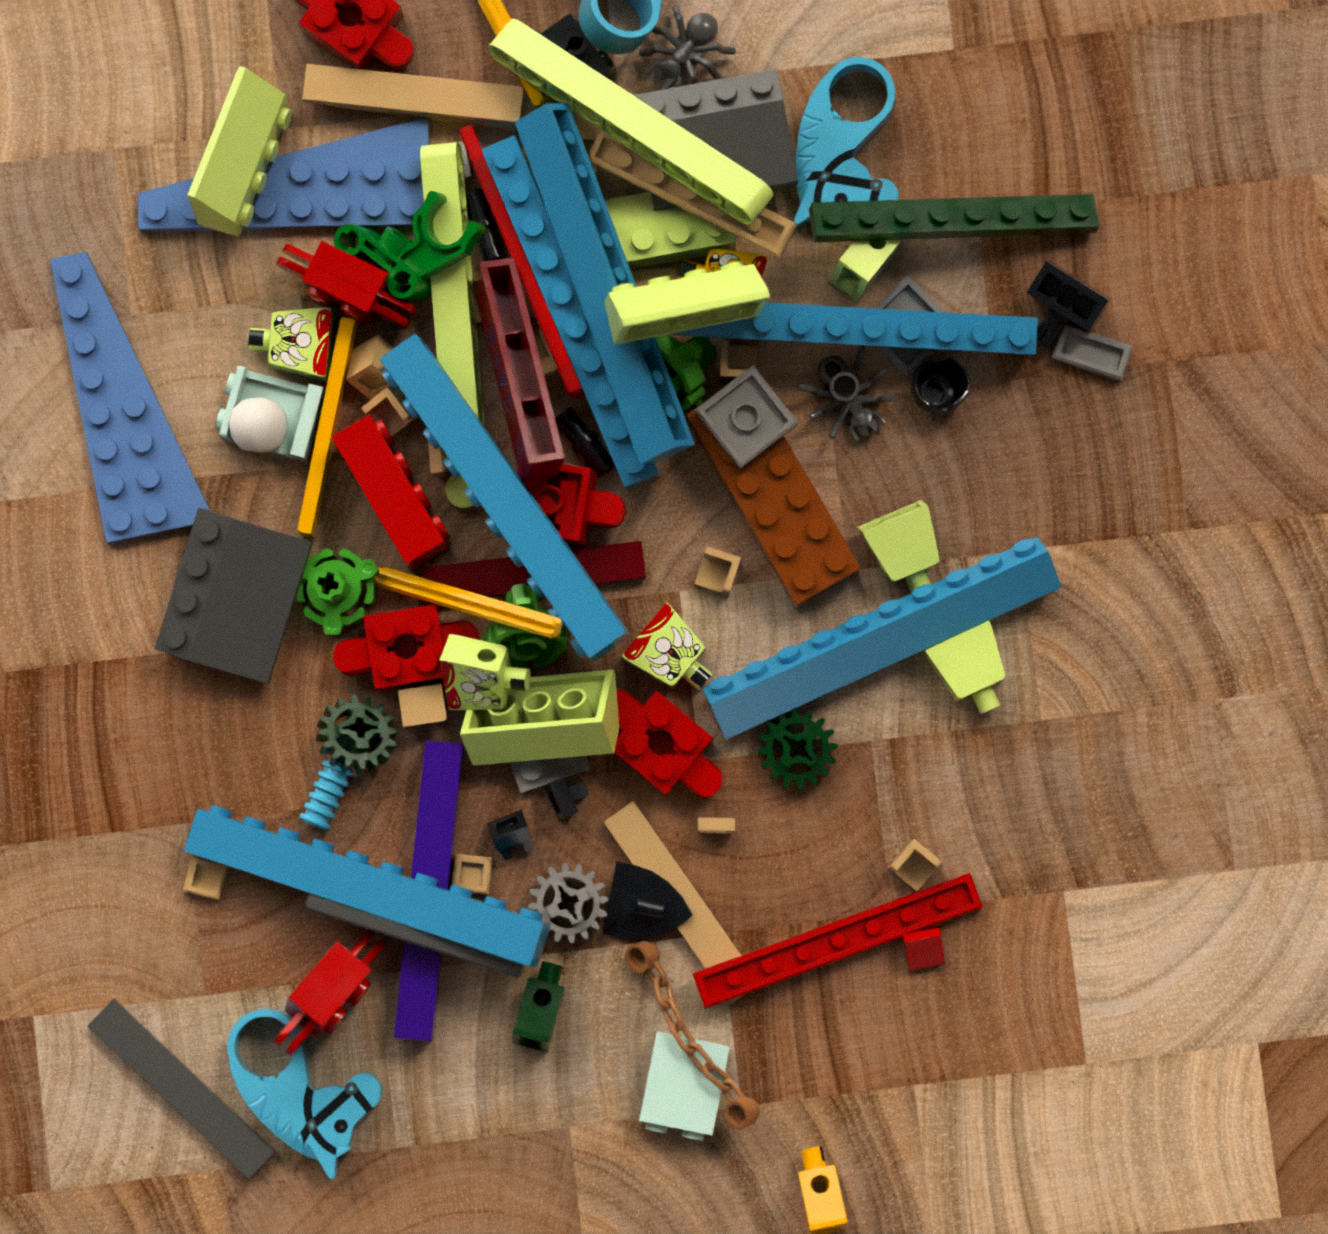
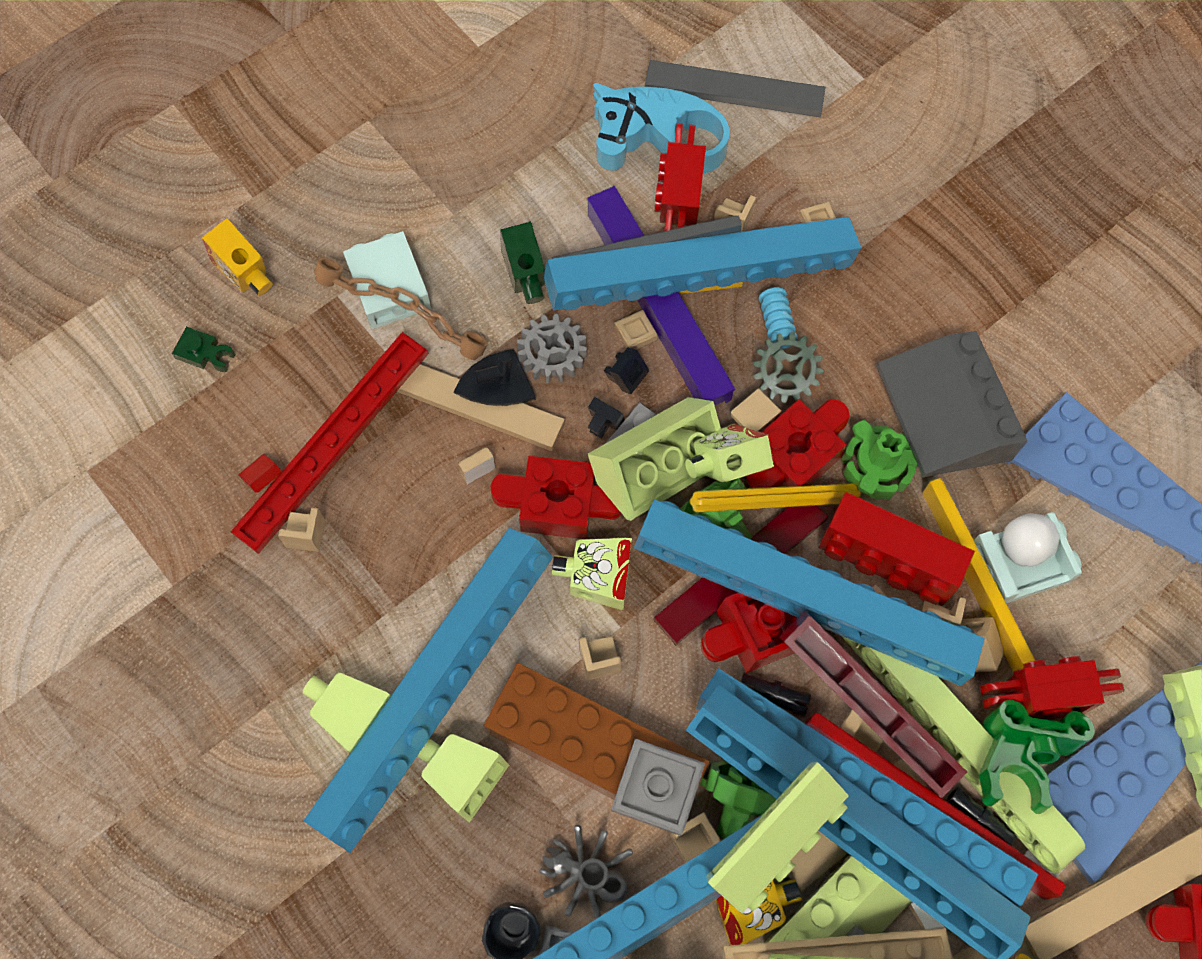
camera: 145 degrees right, 15 degrees down
(290, 935) = (732, 208): none -> tan panel
(298, 342) = (1052, 623): torso -> none
(786, 761) = (435, 555): dark green gear -> none
(912, 1128) = (199, 348): none -> dark green plate

